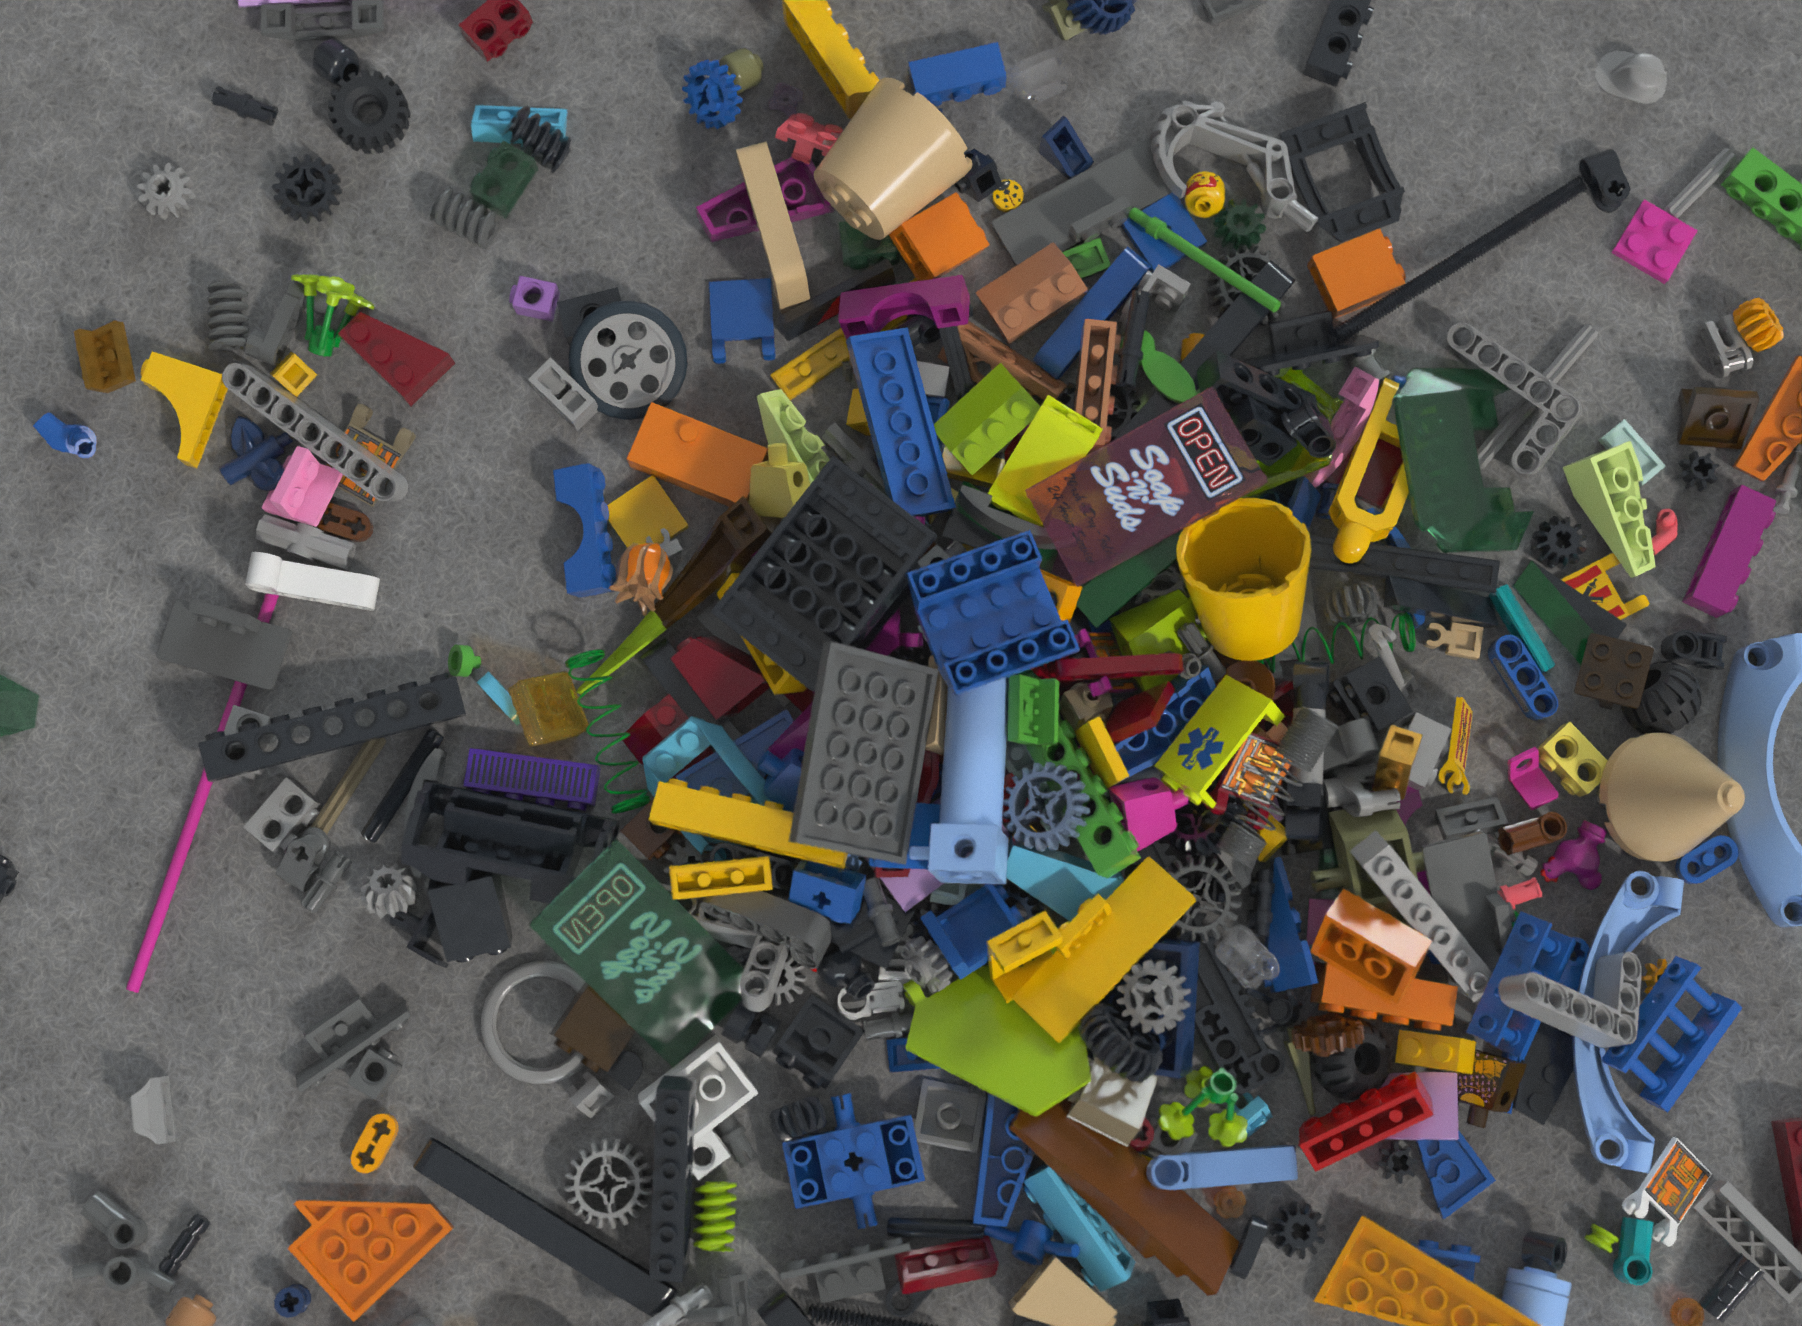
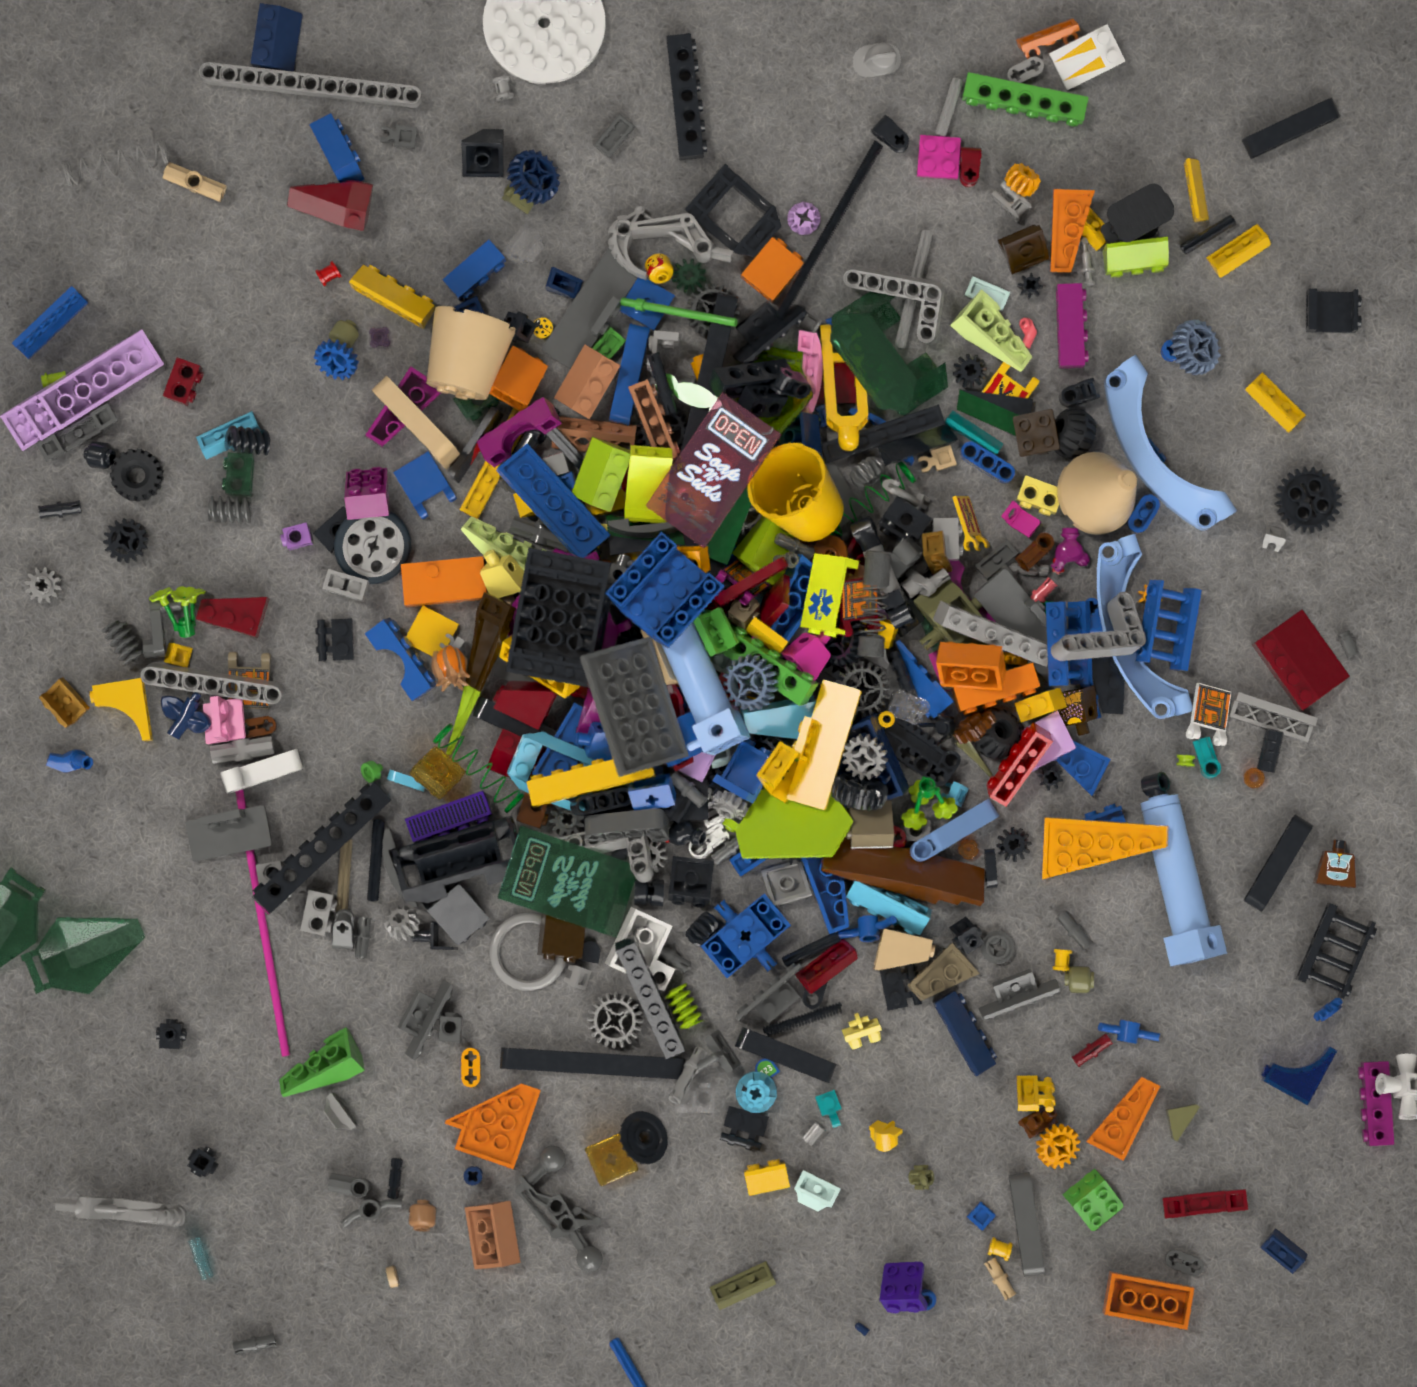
camera: 25 degrees left, 5 degrees up
(186, 1037) = (331, 1064): none -> bright green wedge
(520, 465) = (342, 639): none -> black plate
(656, 286) = (366, 493): none -> magenta slope
(720, 877) = (589, 817): yellow slope -> none
(808, 136) = (409, 355): coral piece -> none
(1217, 958) = (885, 714): none -> yellow pin
(1430, 242) = (806, 227): none -> lavender gear
(1432, 970) = (1014, 659): none -> light orange gear
(1692, 270) = (970, 163): none -> dark red piece

